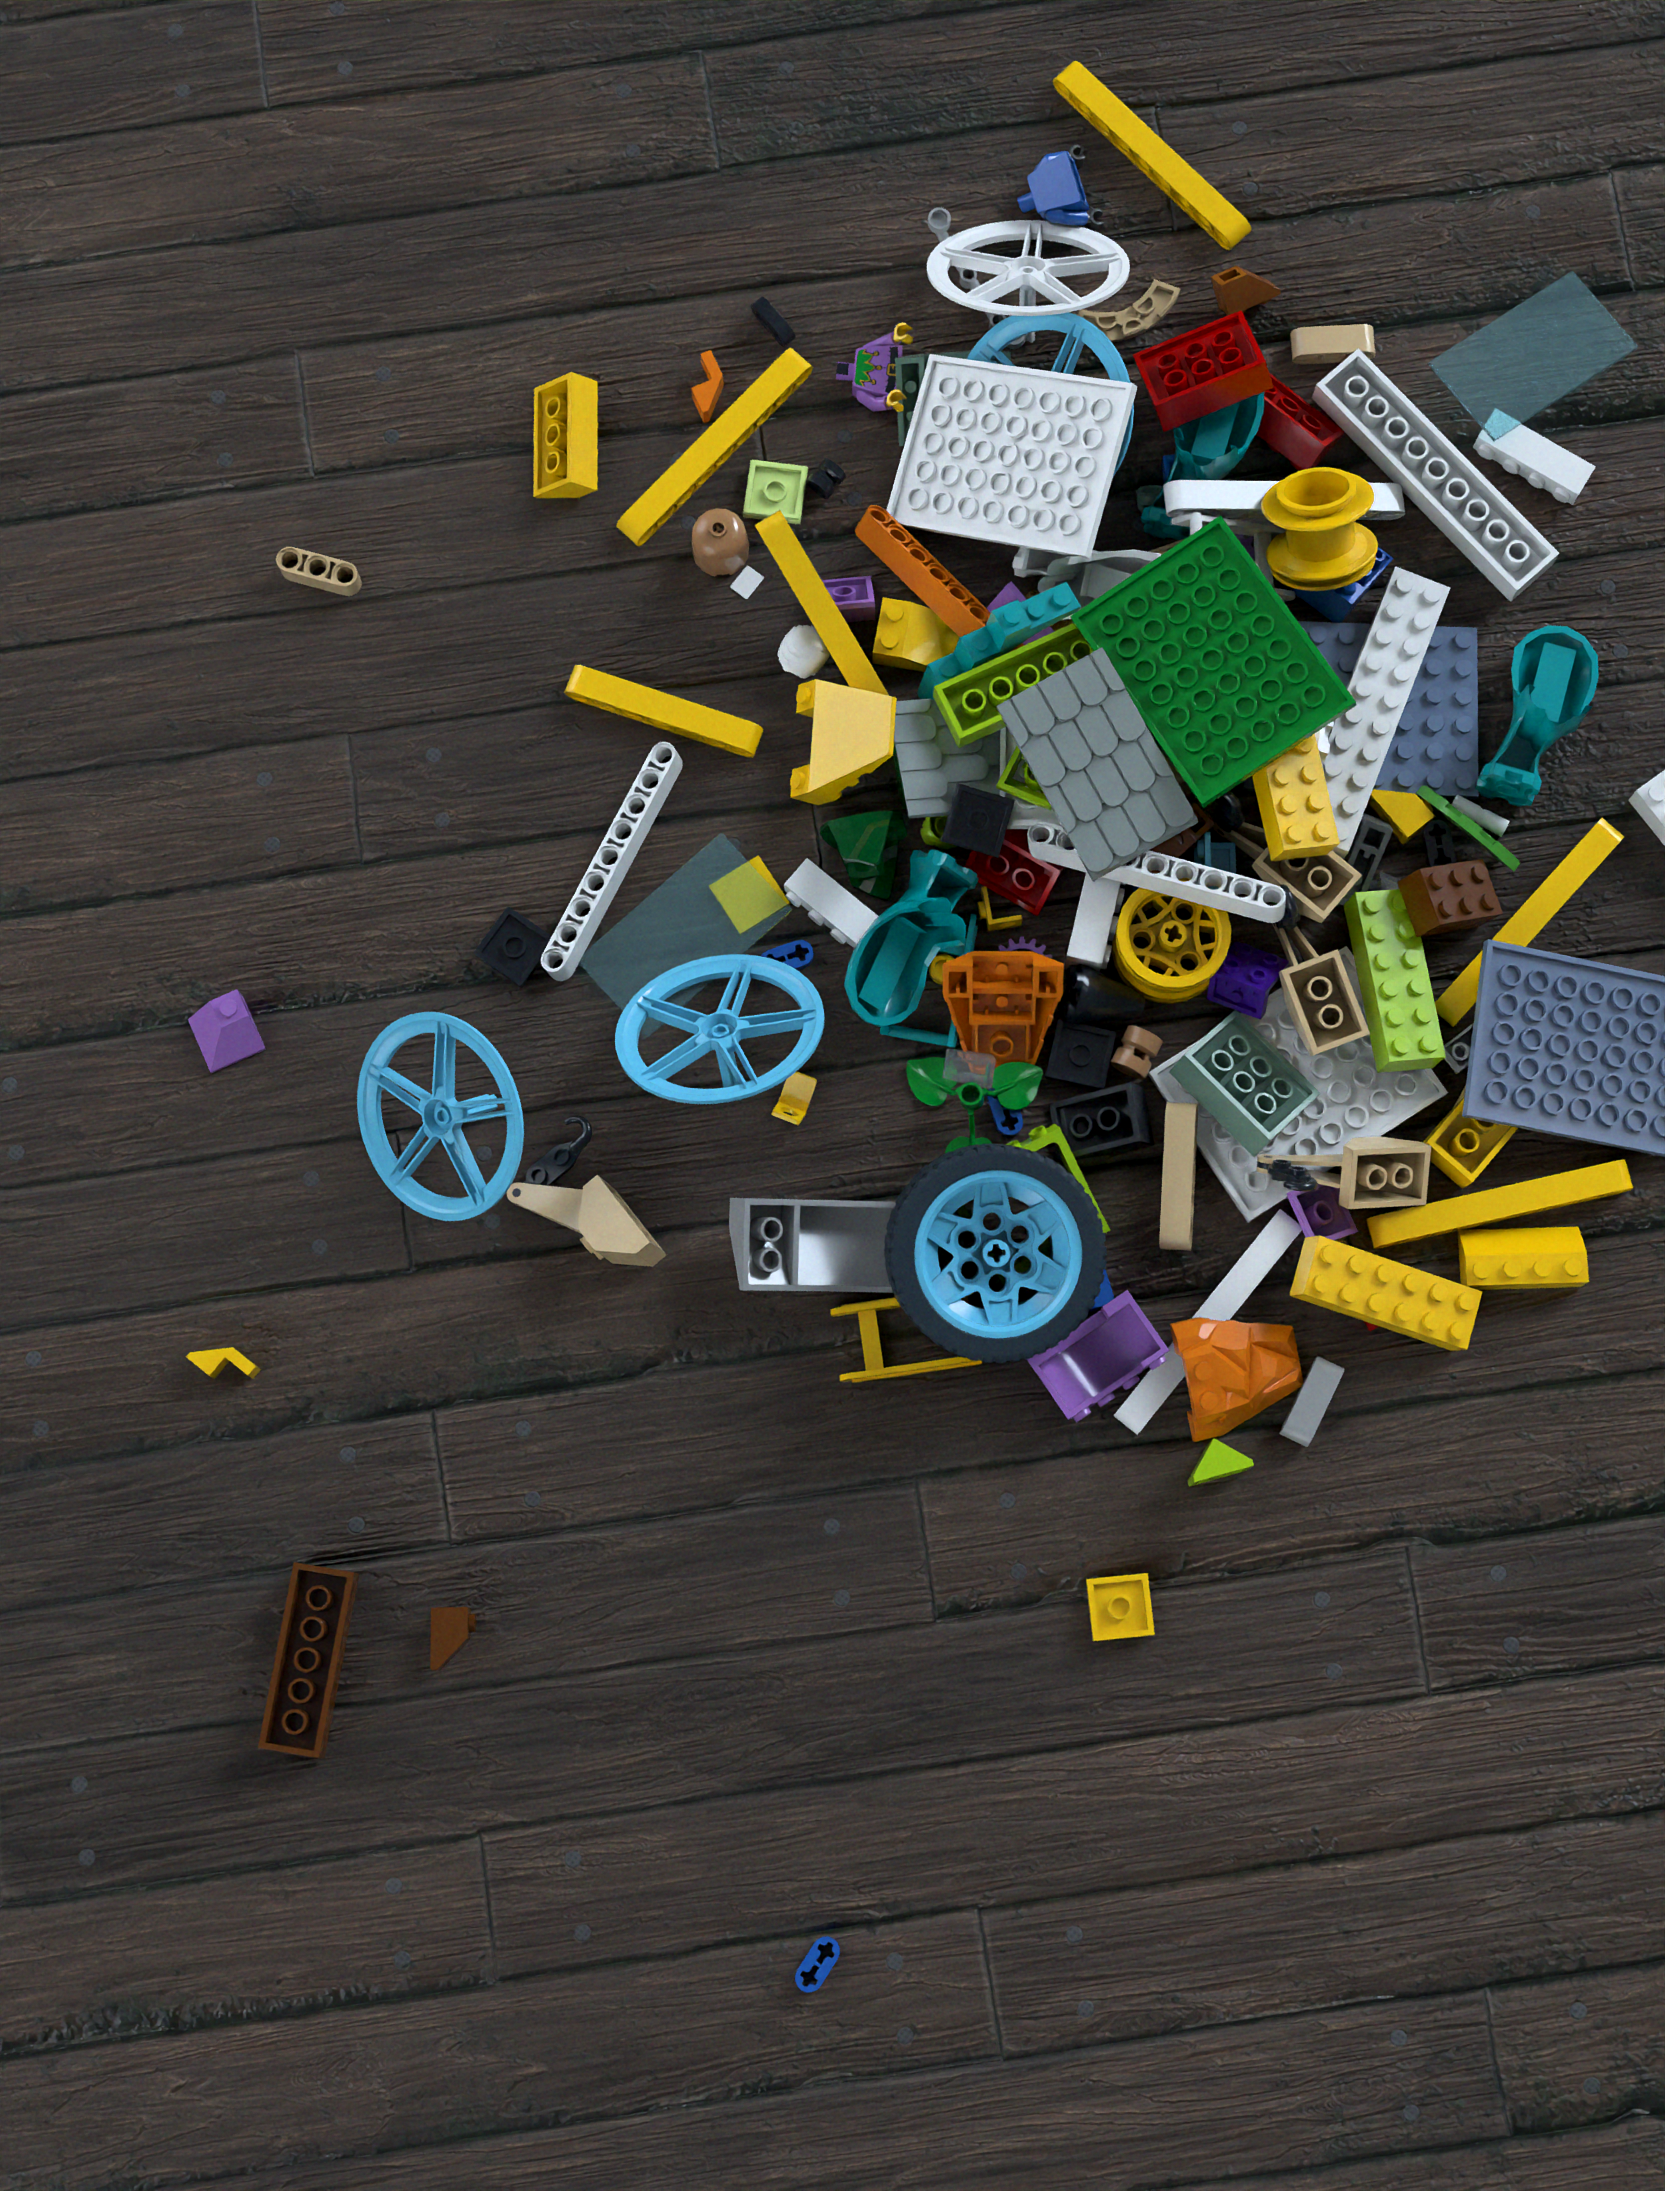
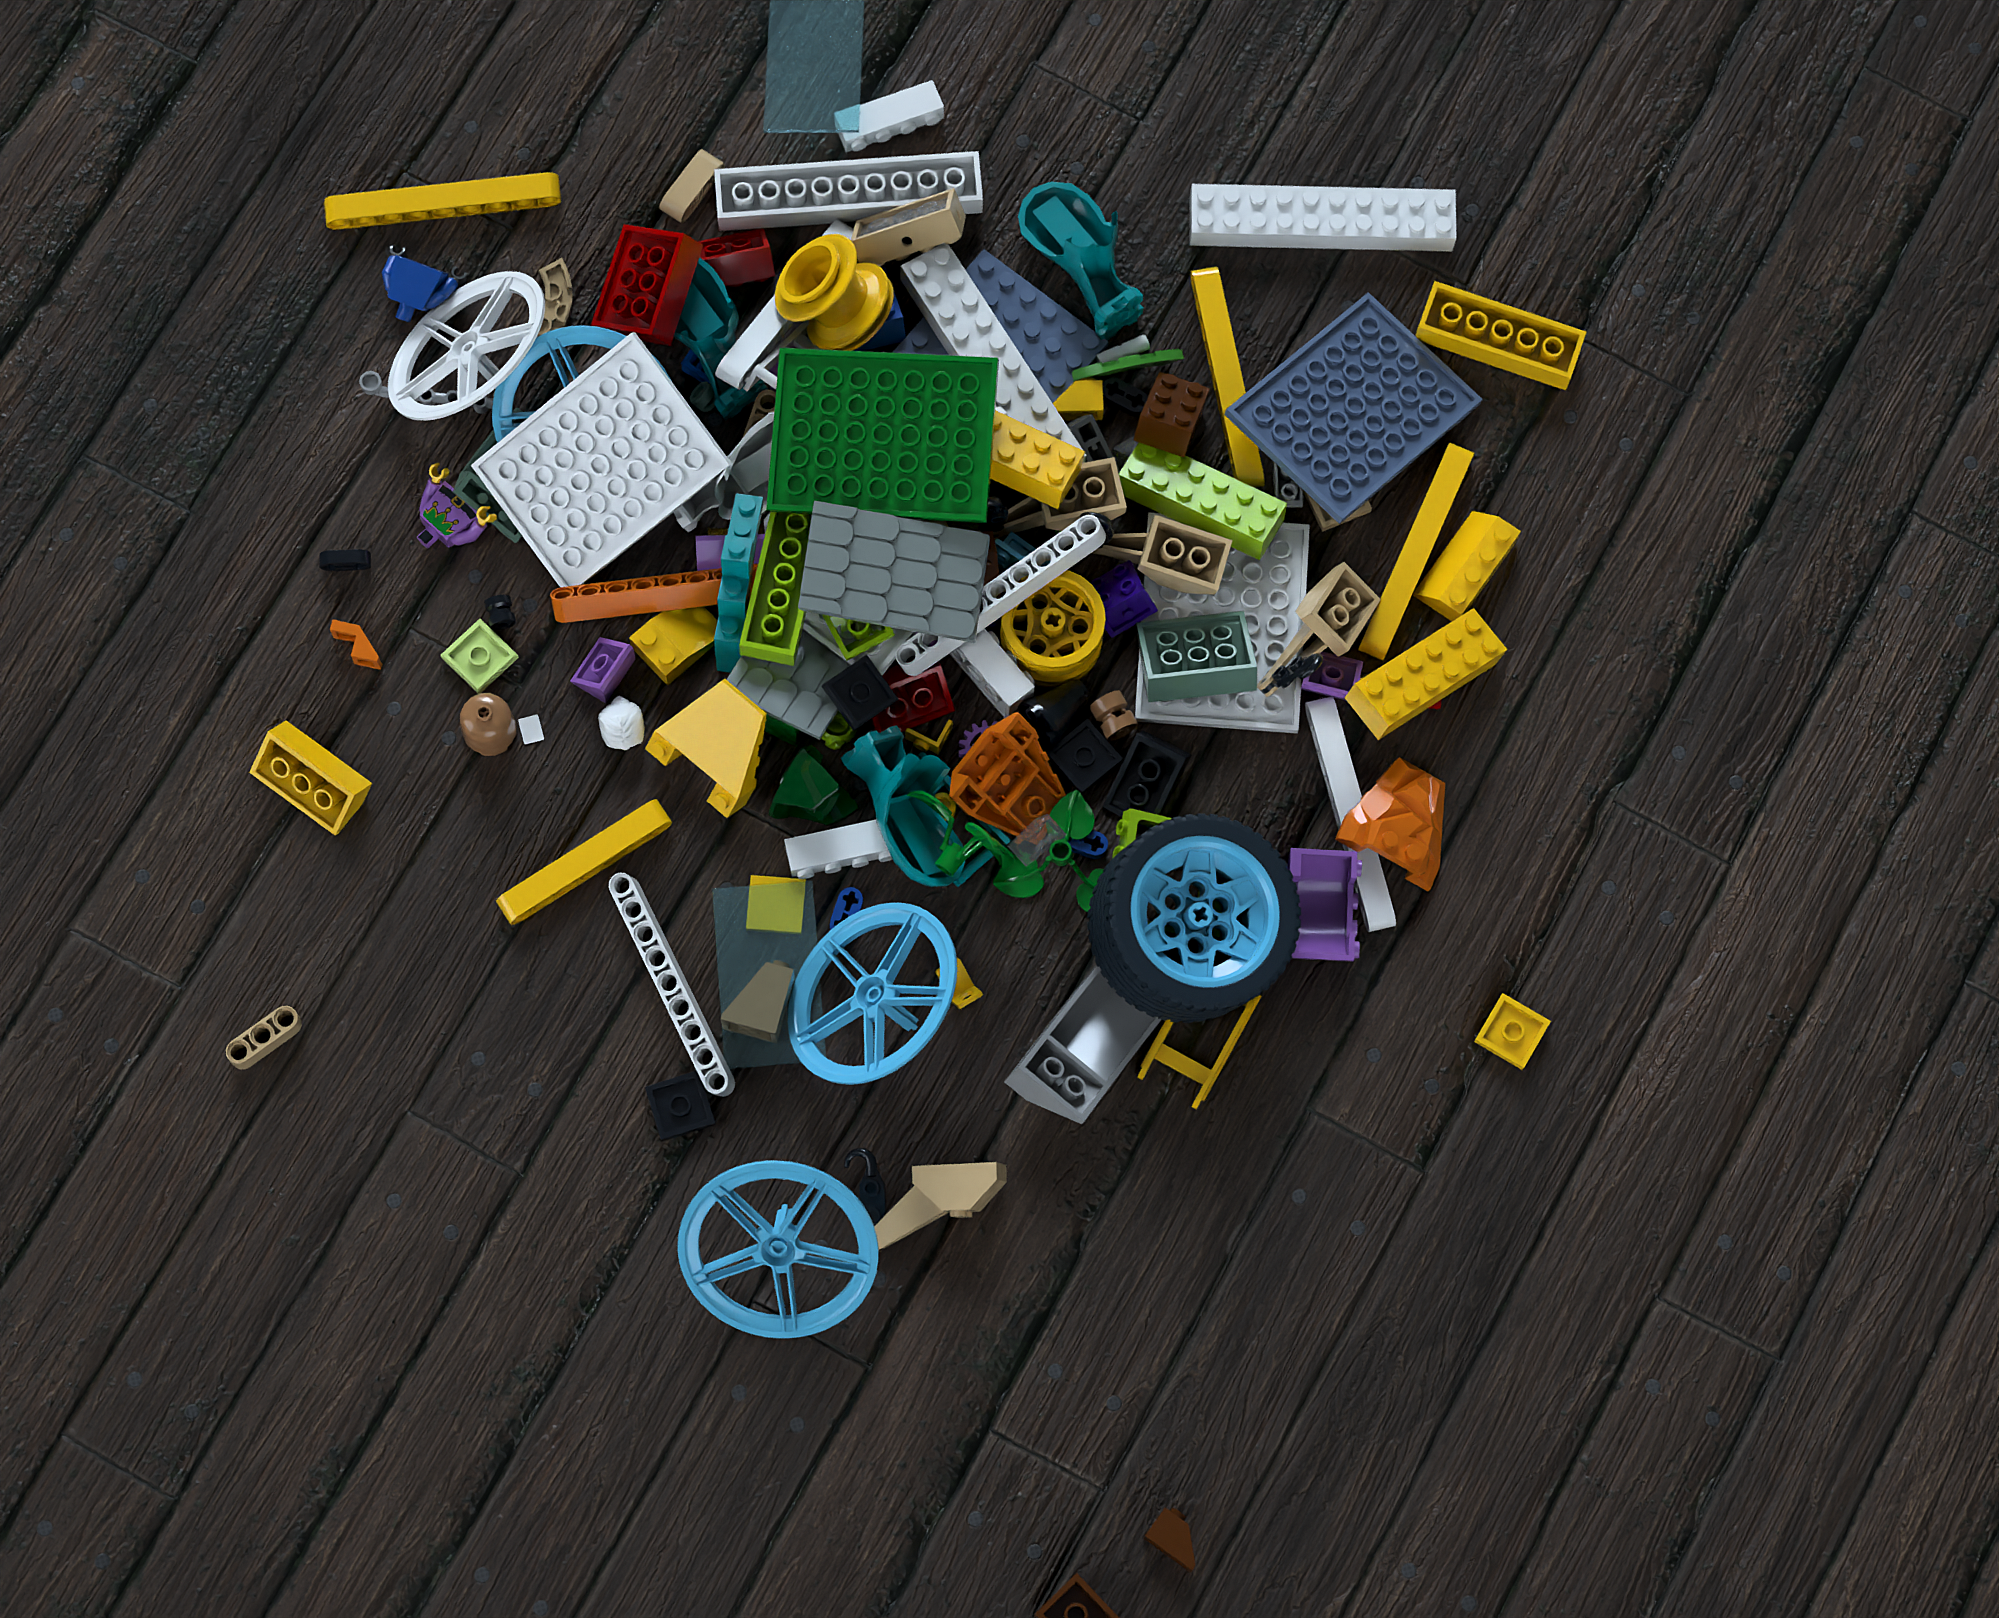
camera: 60 degrees left, 5 degrees down
(215, 1360) = (826, 1569): yellow slope -> none
(226, 1031) = (573, 1373): medium lavender slope -> none
(649, 946) = (762, 1003): none -> dark tan slope
(714, 447) = (408, 674): yellow beam -> none
(818, 604) = (602, 684): yellow beam -> none
(824, 1968) = (1610, 1446): blue beam -> none
(892, 1007) = (955, 855): none -> green plant
(1178, 1176) = (1229, 753): tan beam -> none
(1218, 1462) = (1458, 881): lime slope -> none
(1241, 289) = (599, 216): dark orange slope -> none
(1312, 1401) = (1462, 785): light grey beam -> none
(1436, 548) = (909, 228): none -> tan brick
(1465, 1145) = (1358, 539): yellow slope -> none

